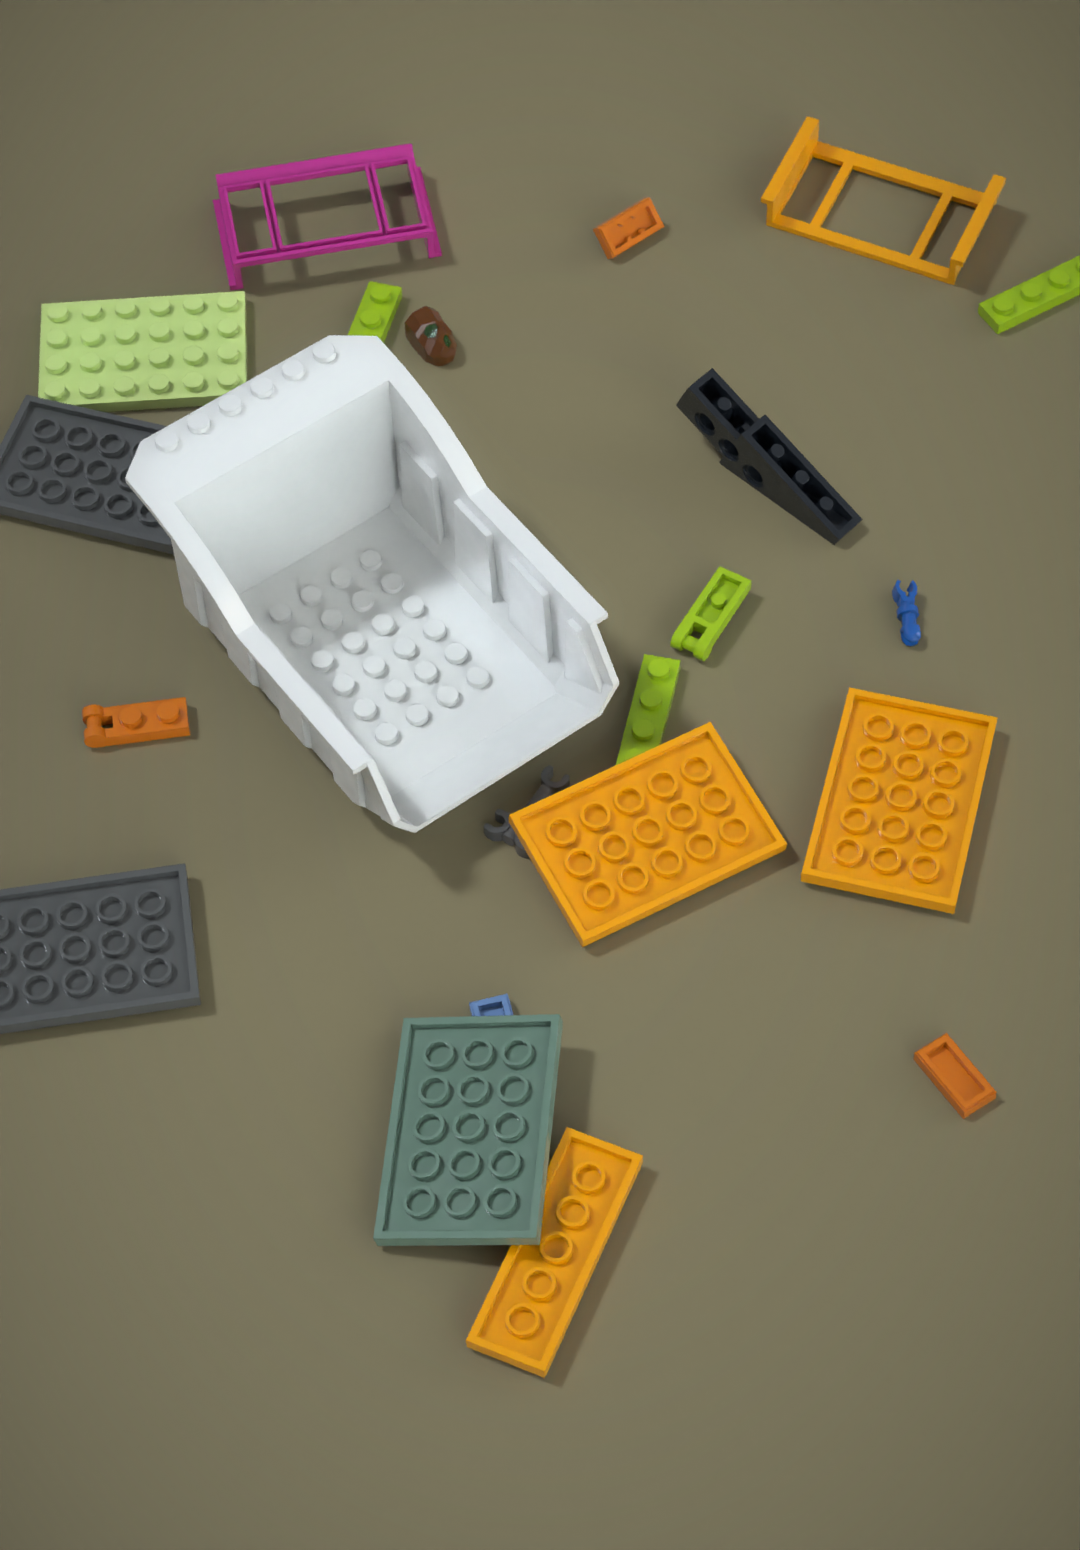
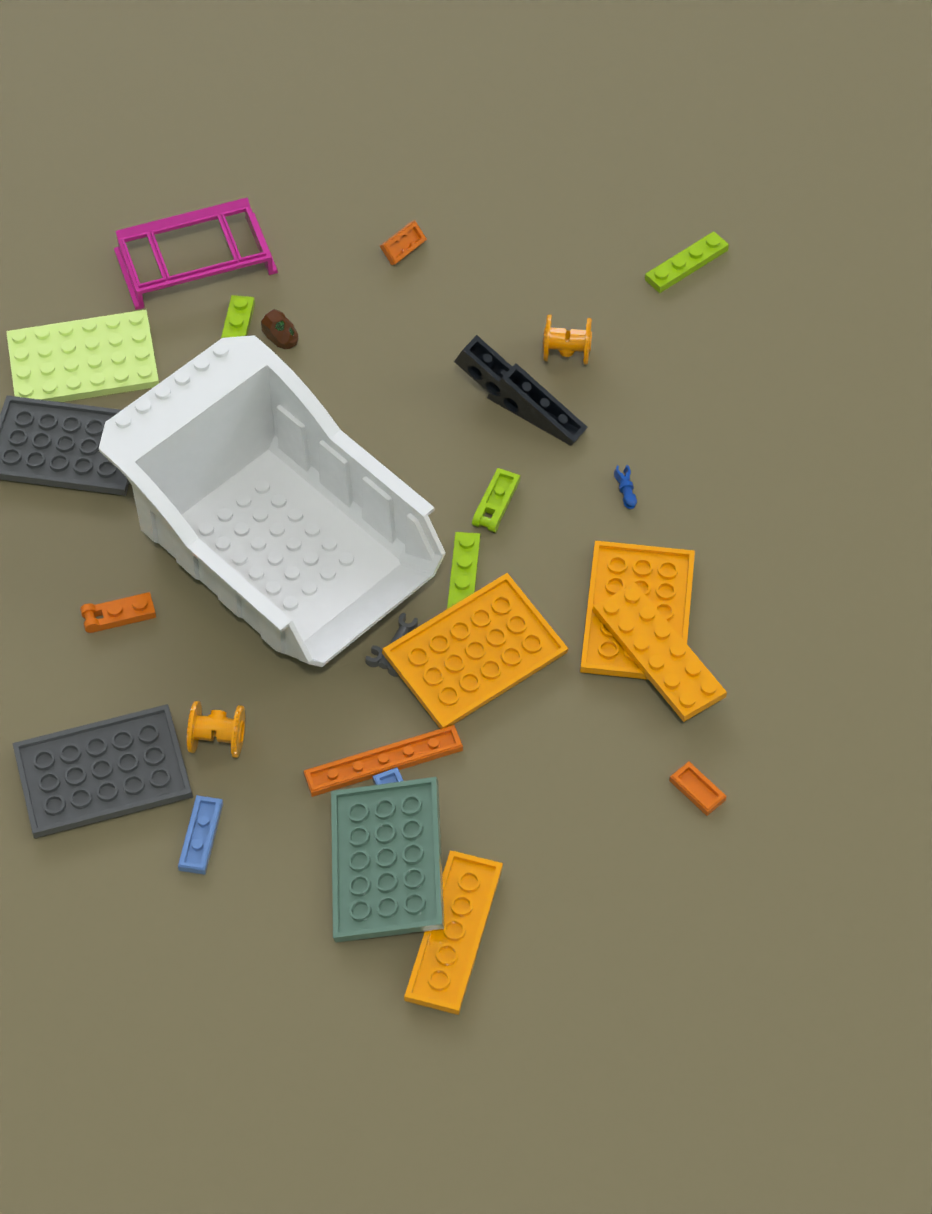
camera: 10 degrees left, 0 degrees up
(203, 1062) = (200, 835): none -> medium blue tile
(248, 901) = (216, 725): none -> light orange hose
(471, 982) = (376, 761): none -> orange tile
(807, 146) = (516, 176): light orange piece -> none
(847, 390) = (567, 340): none -> light orange hose
(923, 864) = (659, 652): none -> light orange plate

